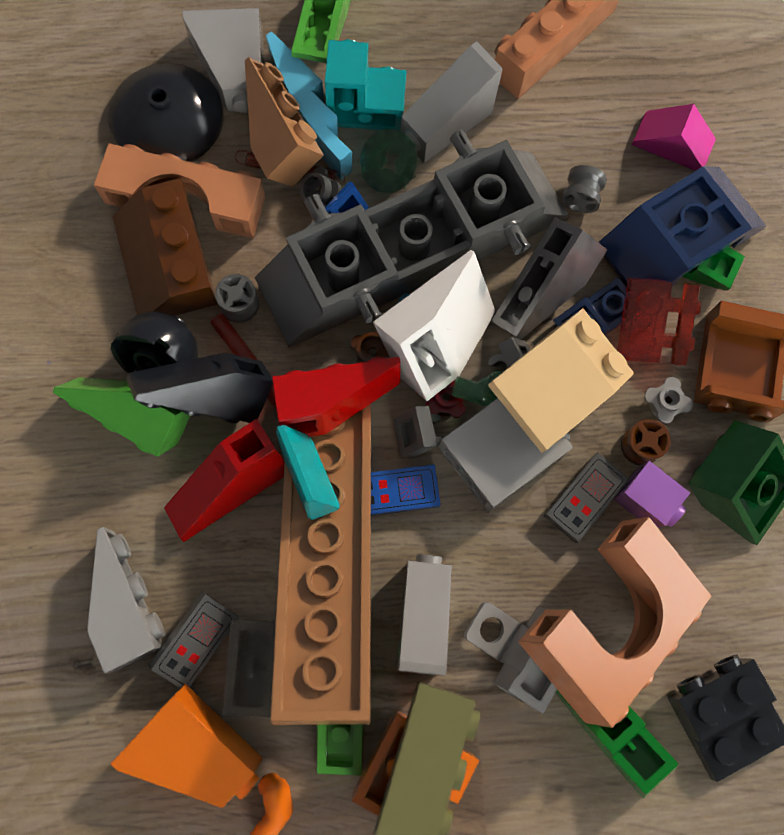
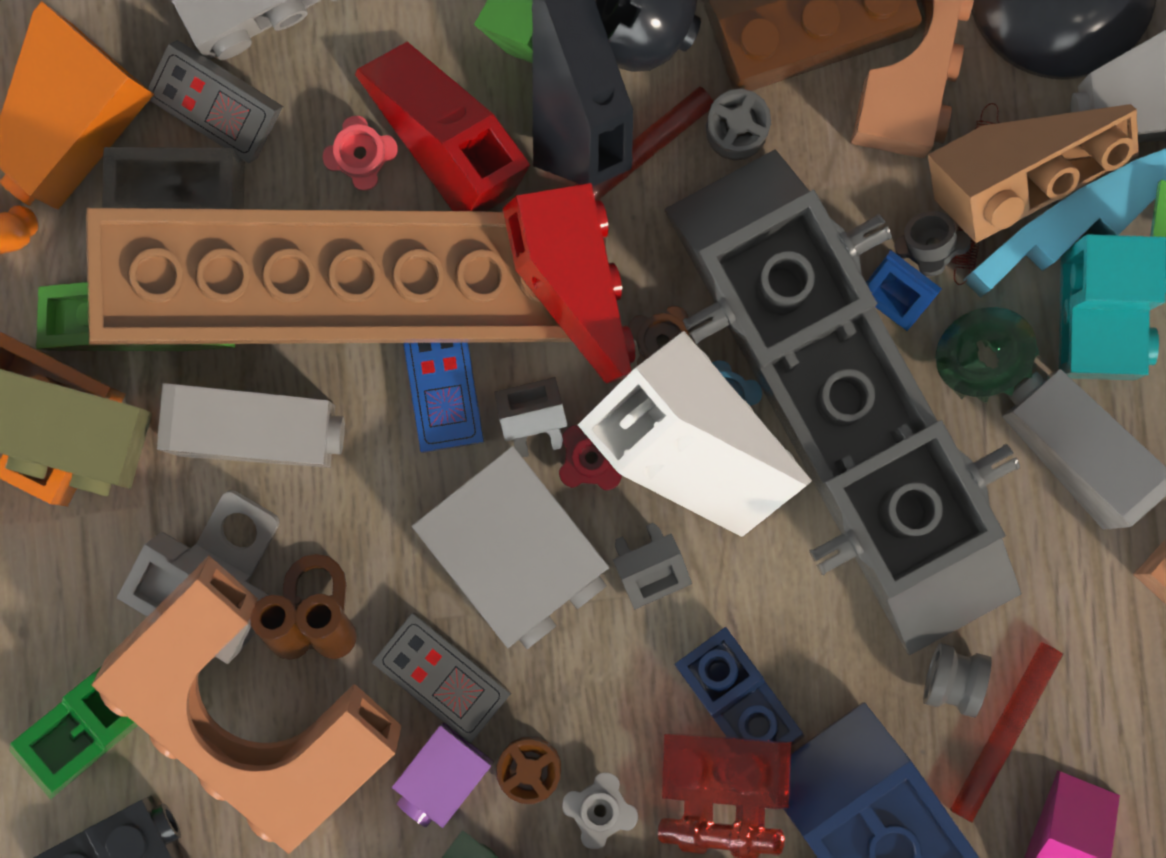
camera: 100 degrees right, 10 degrees up
(225, 540) = (359, 135): none -> coral plate
(307, 472) = (447, 244): teal slope -> none
(475, 392) = (596, 515): clear green arm -> none
(550, 277) = (791, 619): flat silver slope -> none
(559, 565) = (315, 624): none -> reddish brown piece
(561, 380) = (609, 627): tan slope -> none
(610, 167) = (1006, 732): none -> clear red bar

